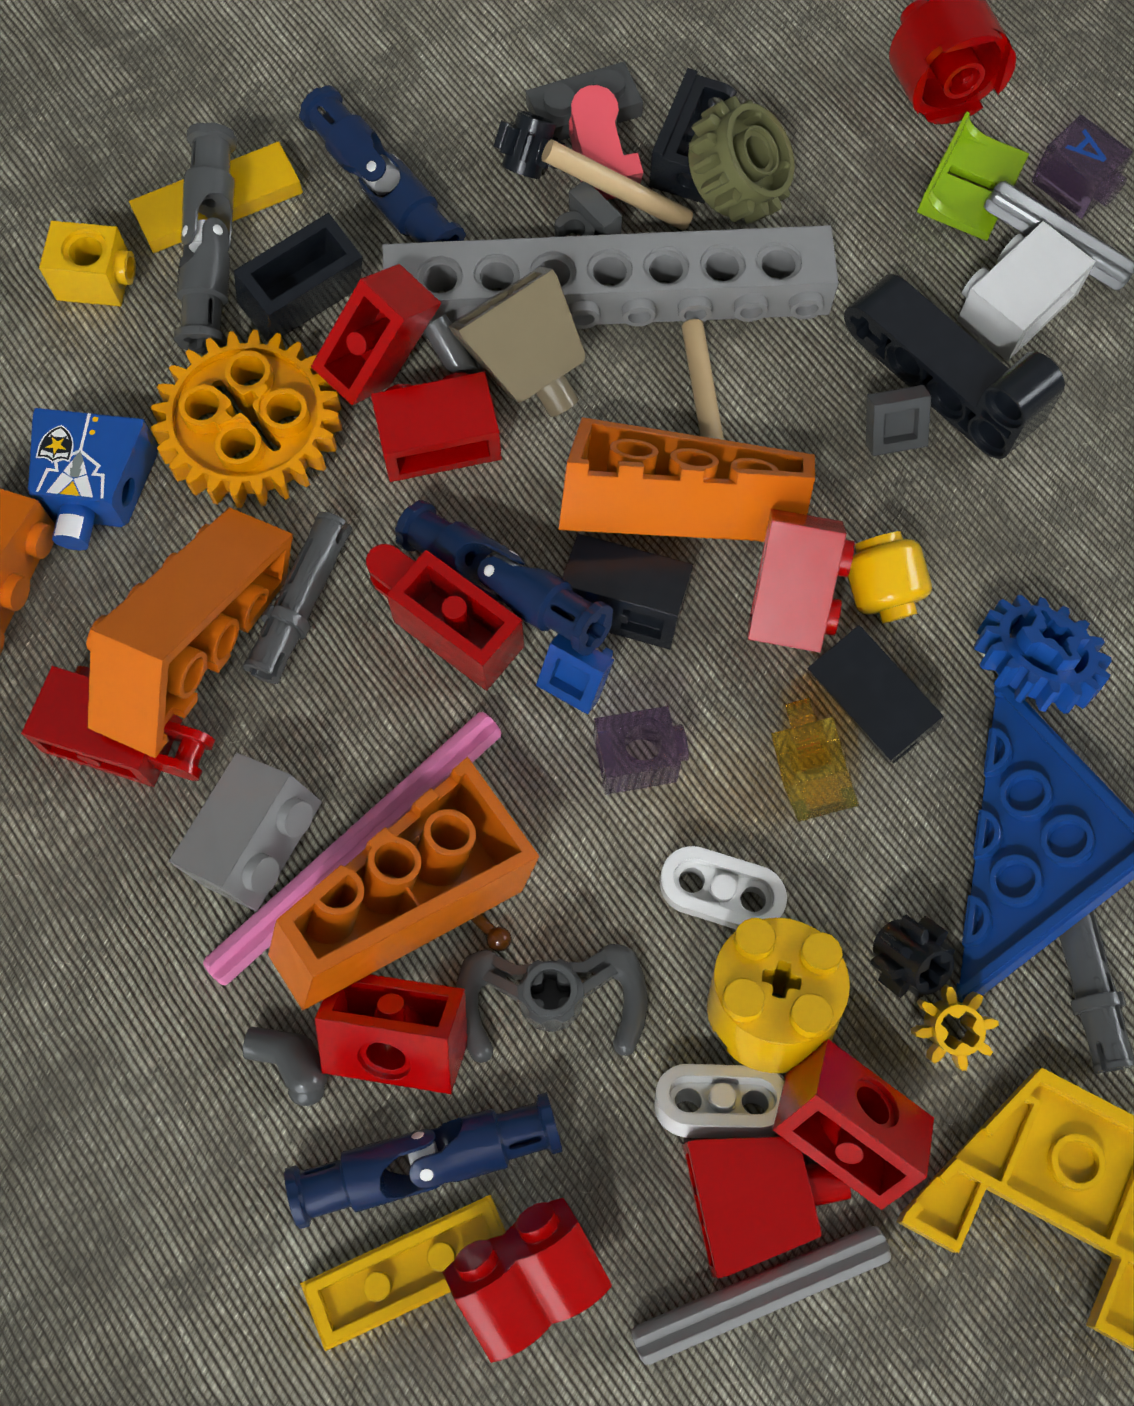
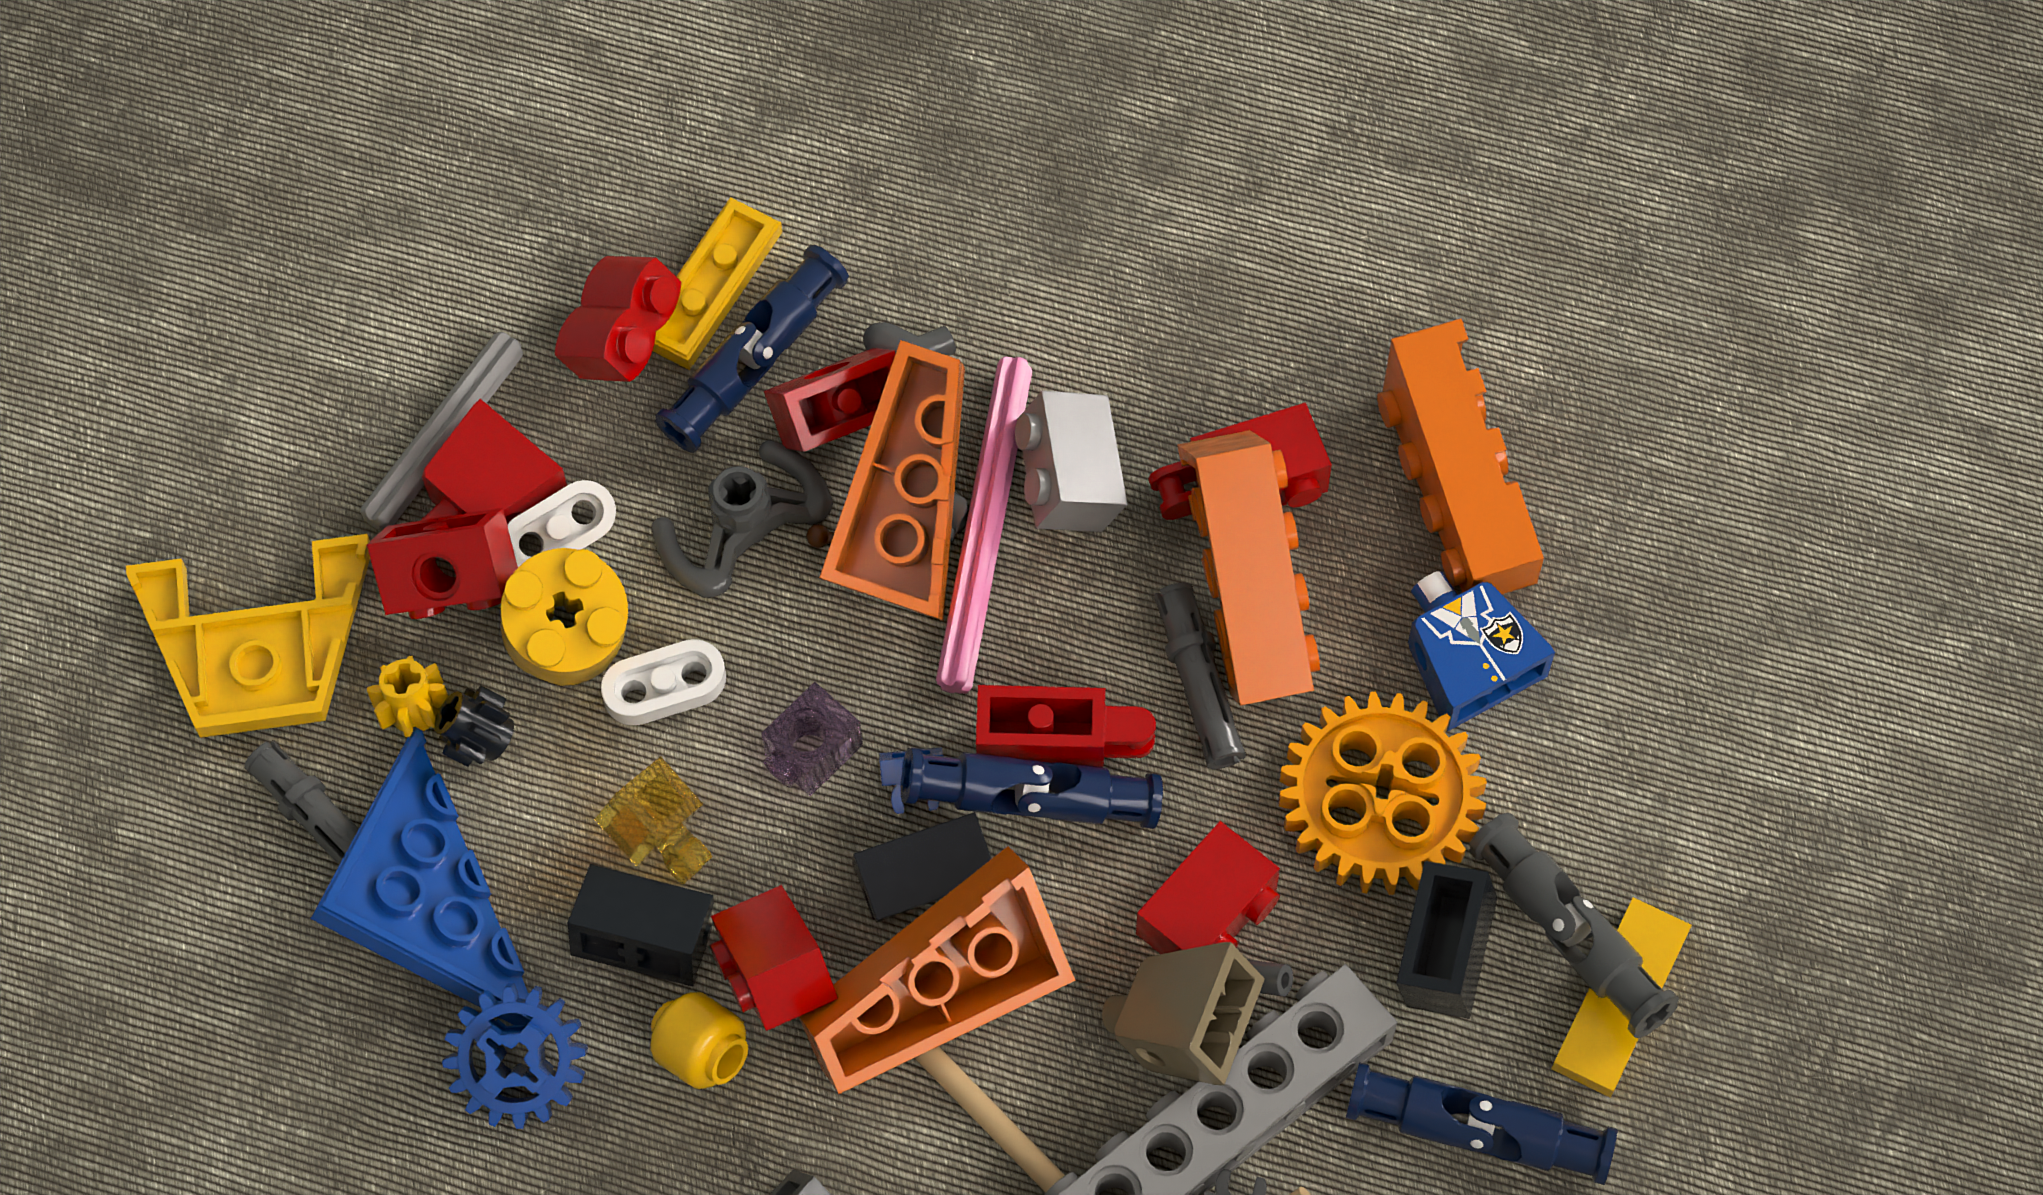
camera: 145 degrees right, 5 degrees down
(87, 263) = (1677, 812): yellow brick -> none
(375, 333) = (1317, 918): red brick -> none

